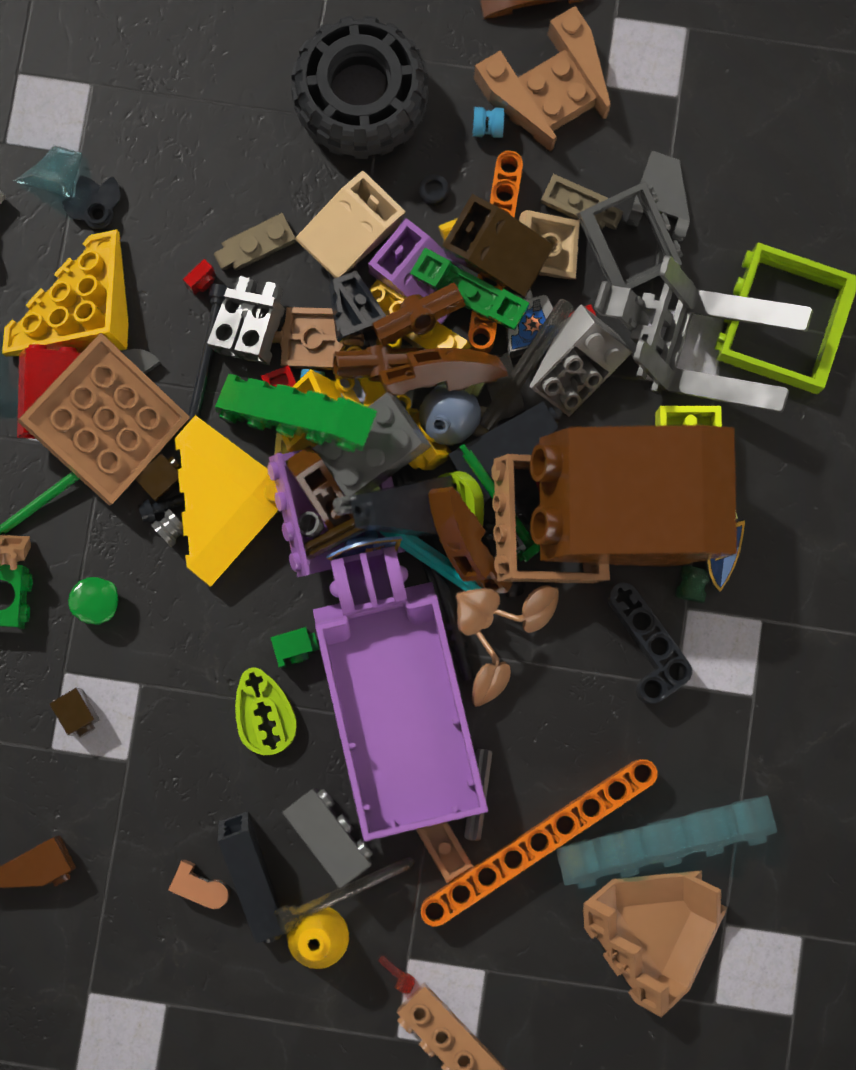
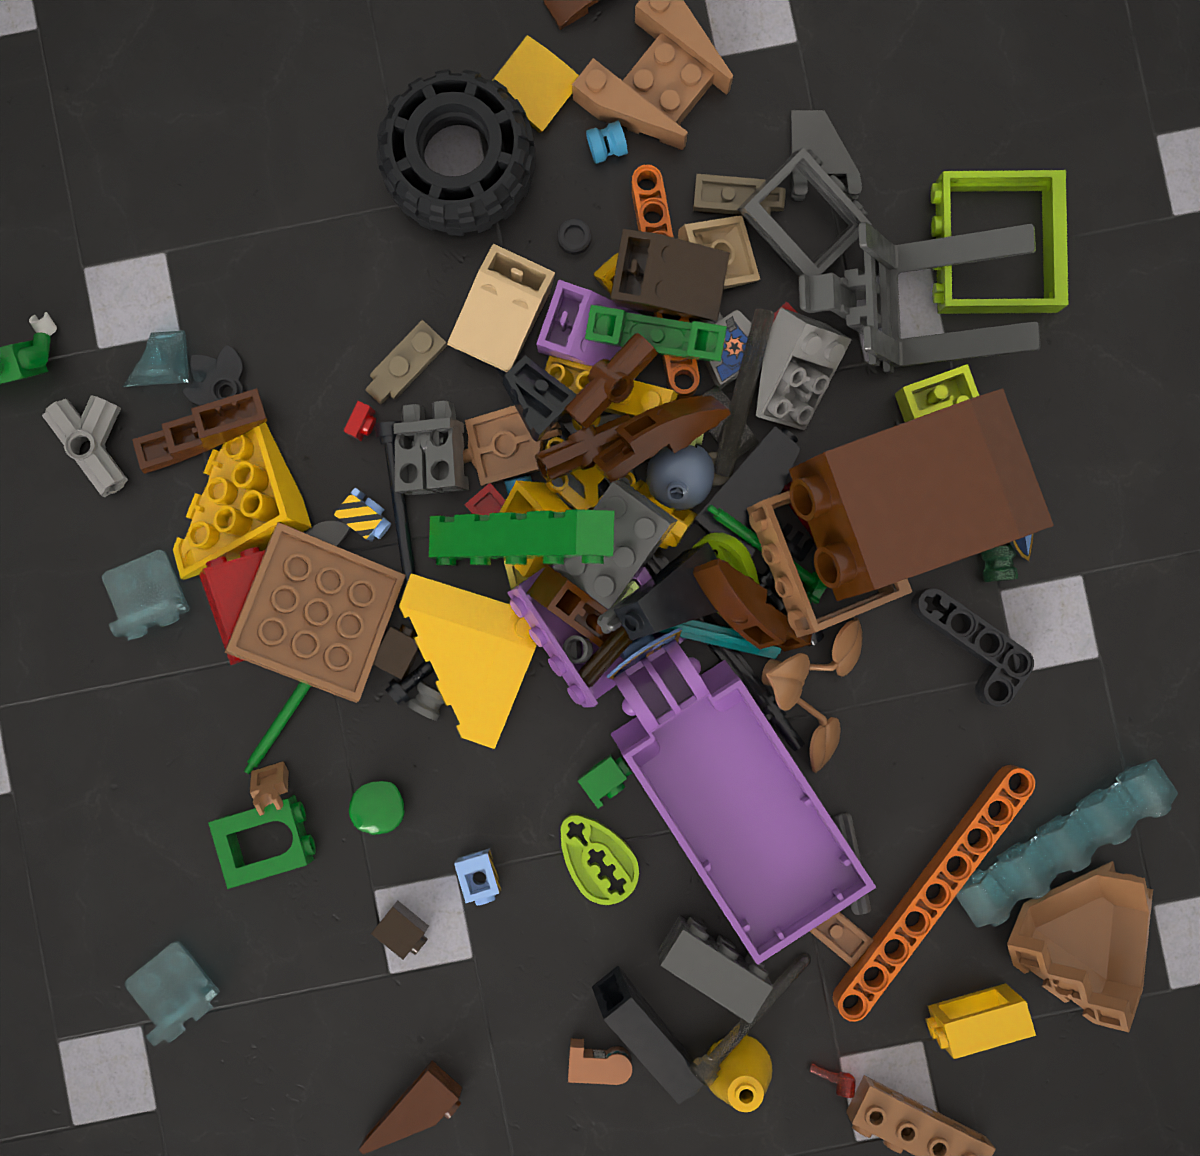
camera: 10 degrees left, 5 degrees up
(66, 239) = (202, 431): none -> reddish brown slope
(148, 683) = (473, 890): none -> light blue brick
(173, 356) = (363, 516): none -> brick
(448, 54) = (537, 81): none -> yellow slope
(538, 964) = (980, 1021): none -> yellow window

